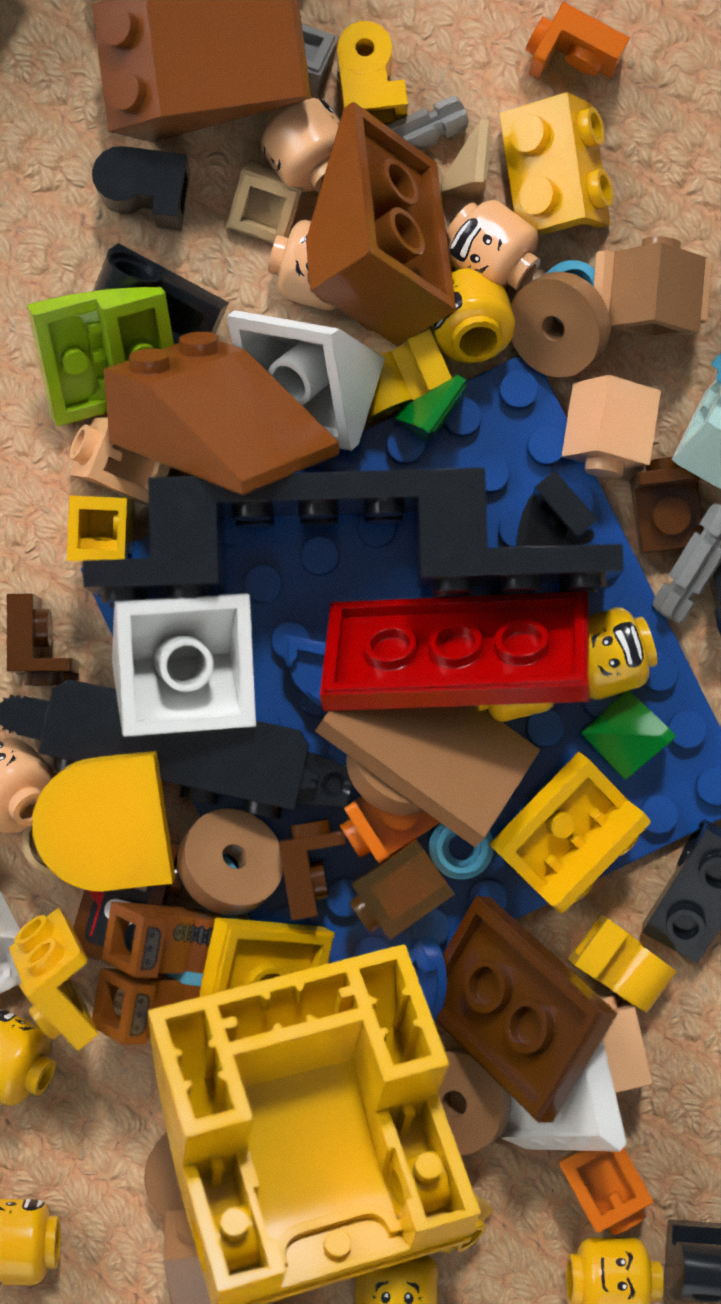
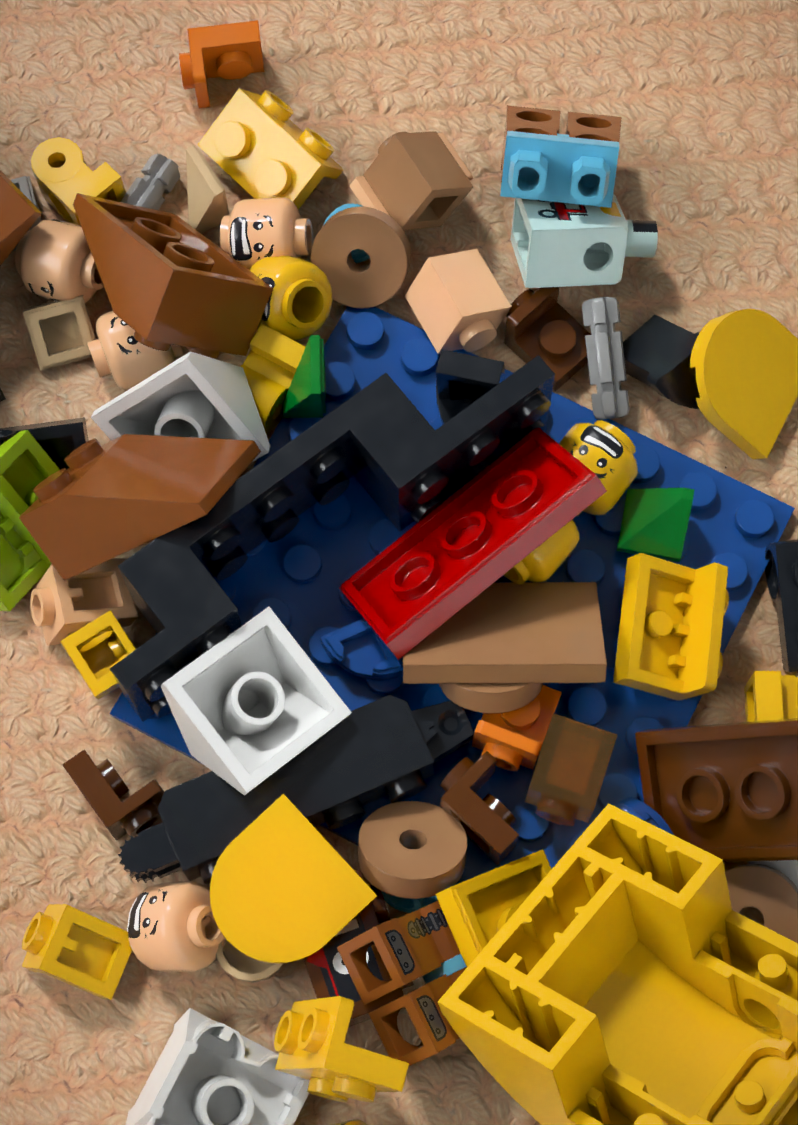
camera: 30 degrees left, 15 degrees down
(458, 868) = (607, 692): medium azure plate -> none

